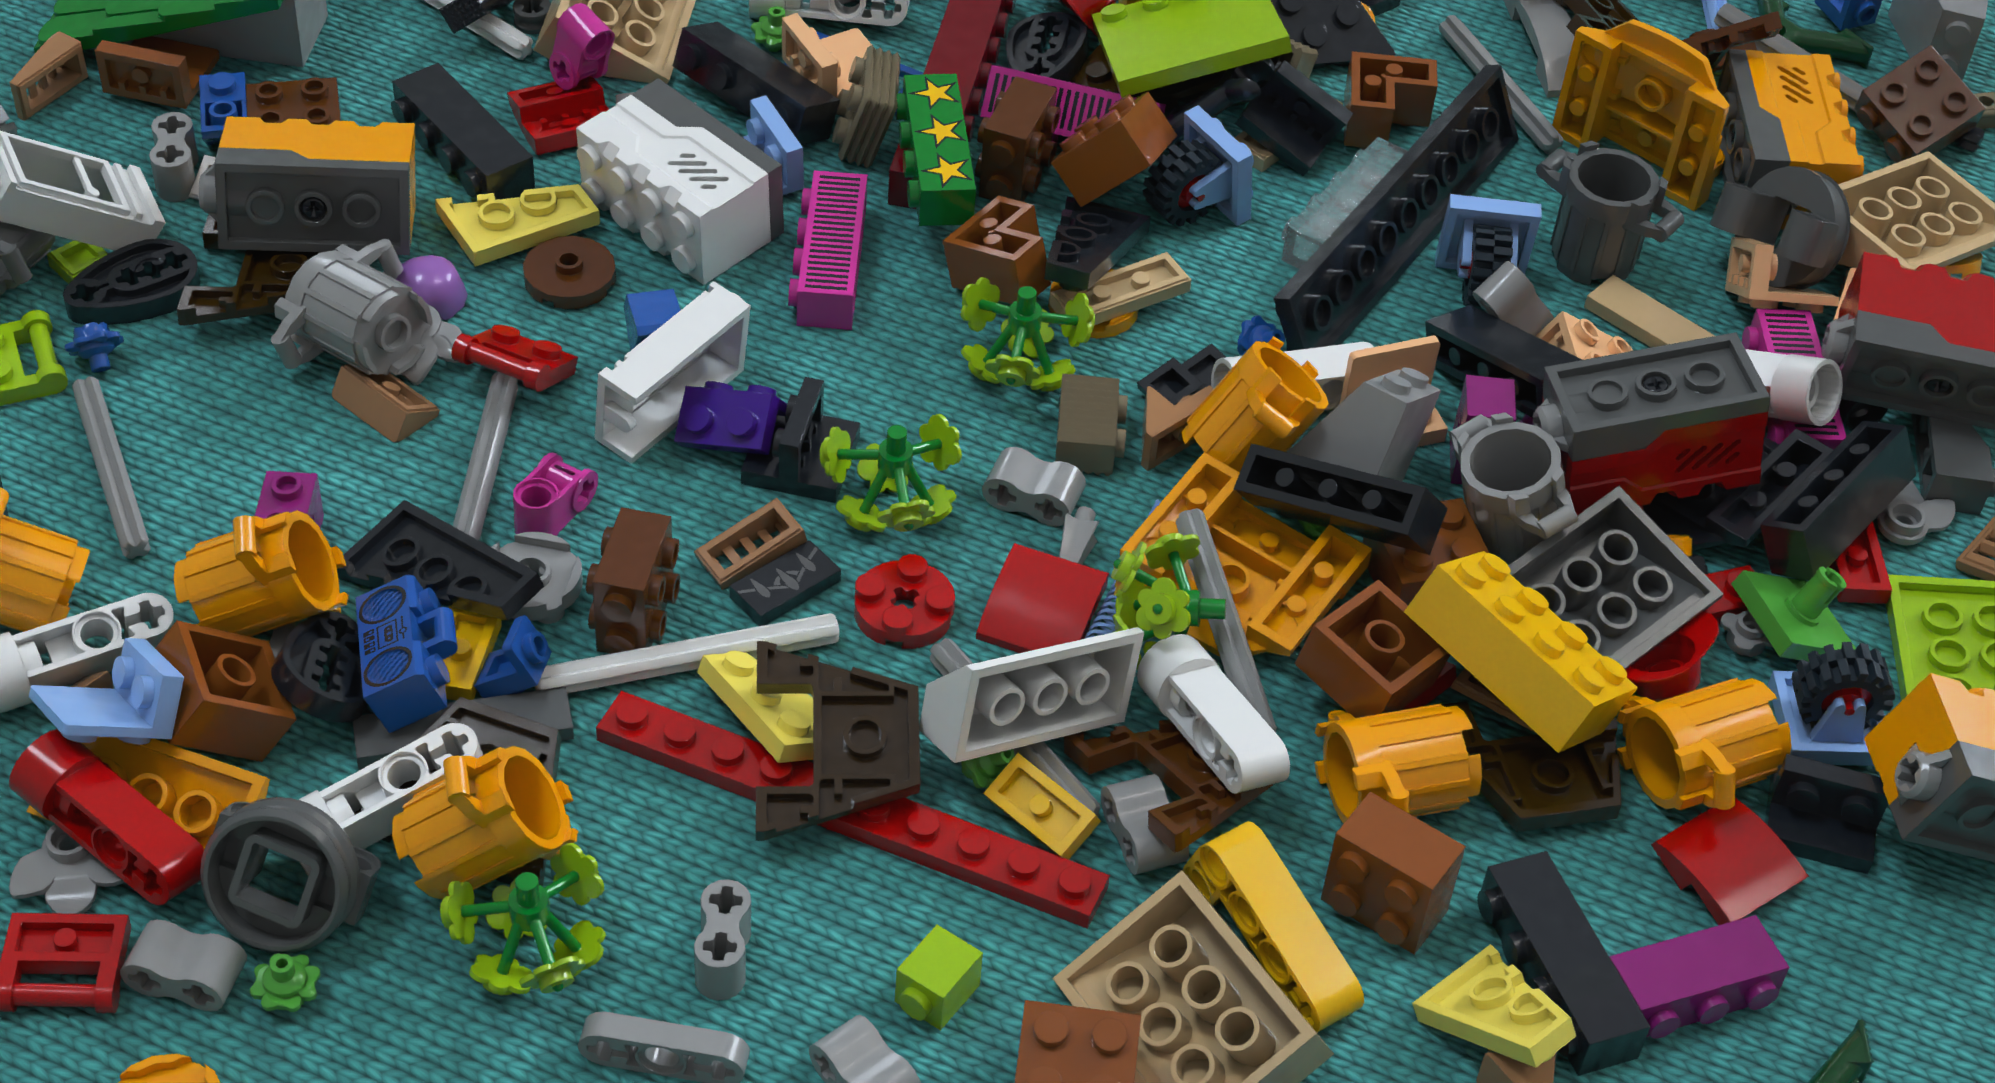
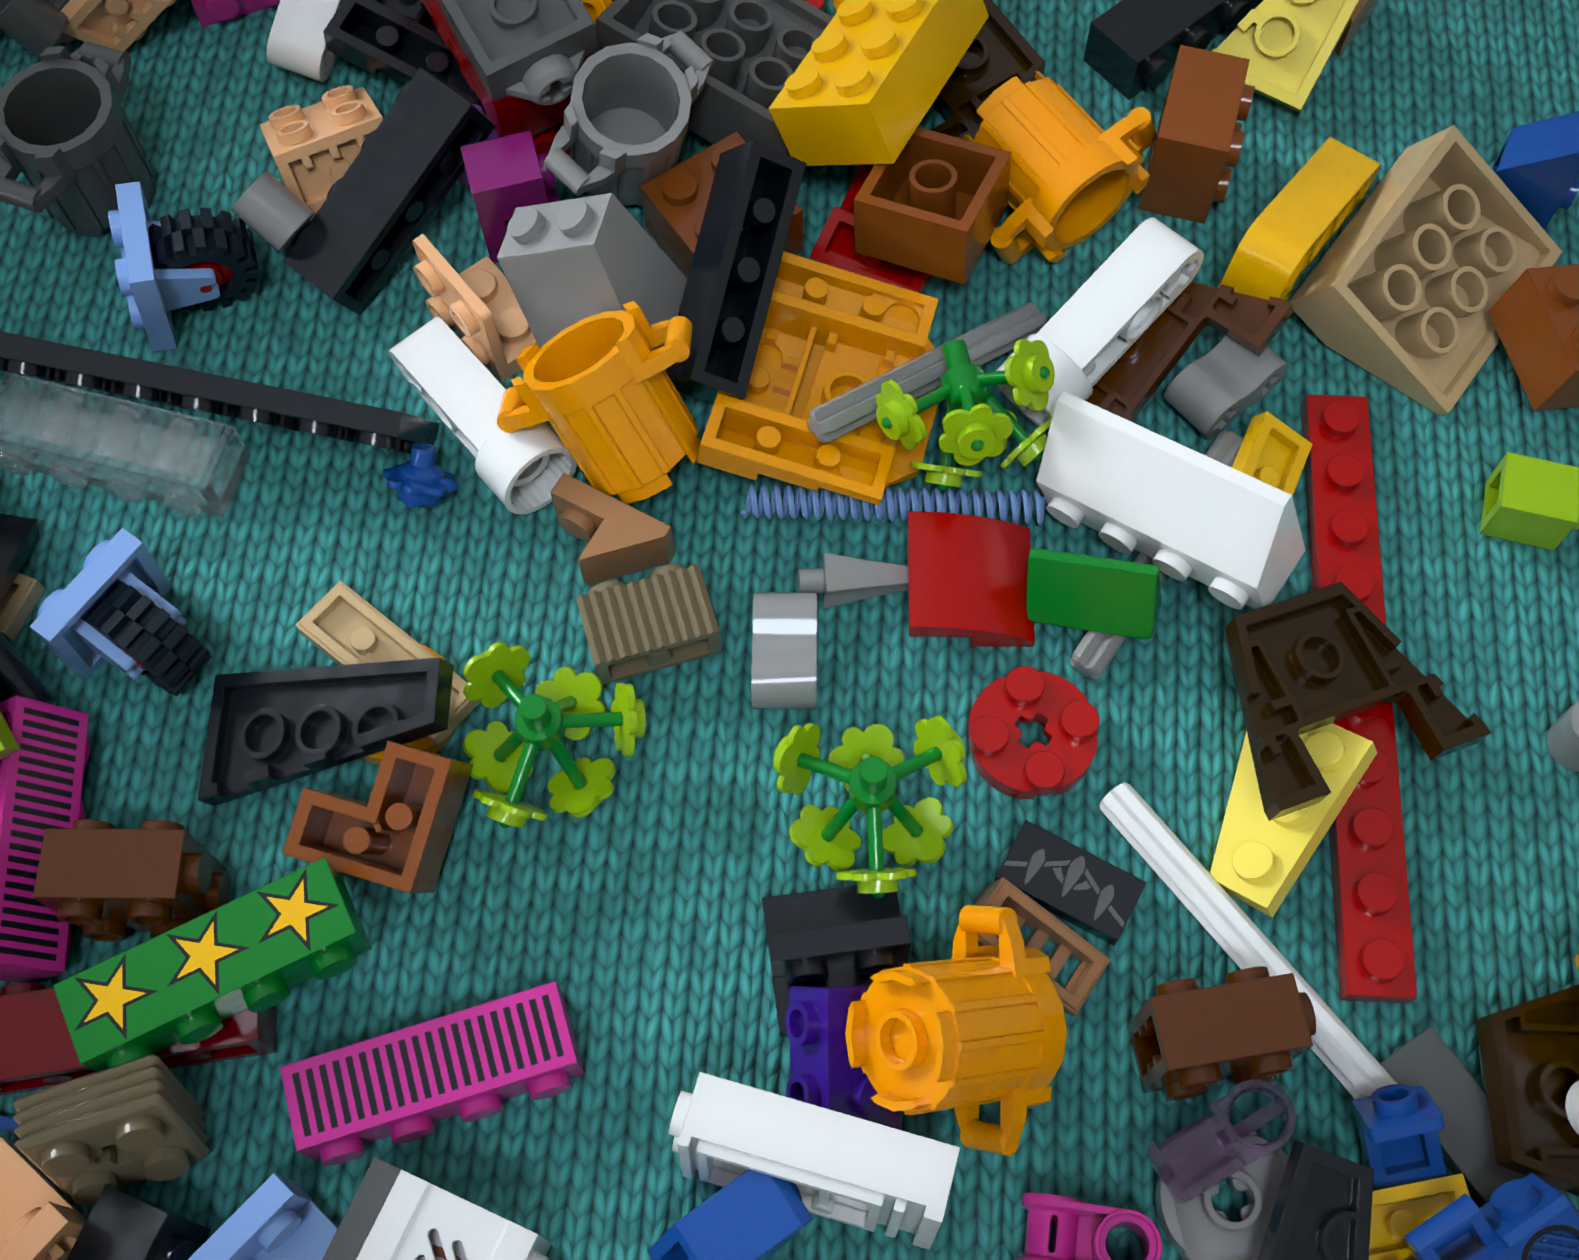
camera: 105 degrees left, 20 degrees up
(566, 558) = (1214, 1149): none -> clear purple piece
(707, 442) = (964, 1031): none -> light orange container
(1003, 641) = (1093, 593): none -> green slope
(1113, 147) = (128, 731): dark orange brick -> none
(1179, 380) = (511, 545): black slope -> none
(1641, 315) = (212, 107): tan tile -> none

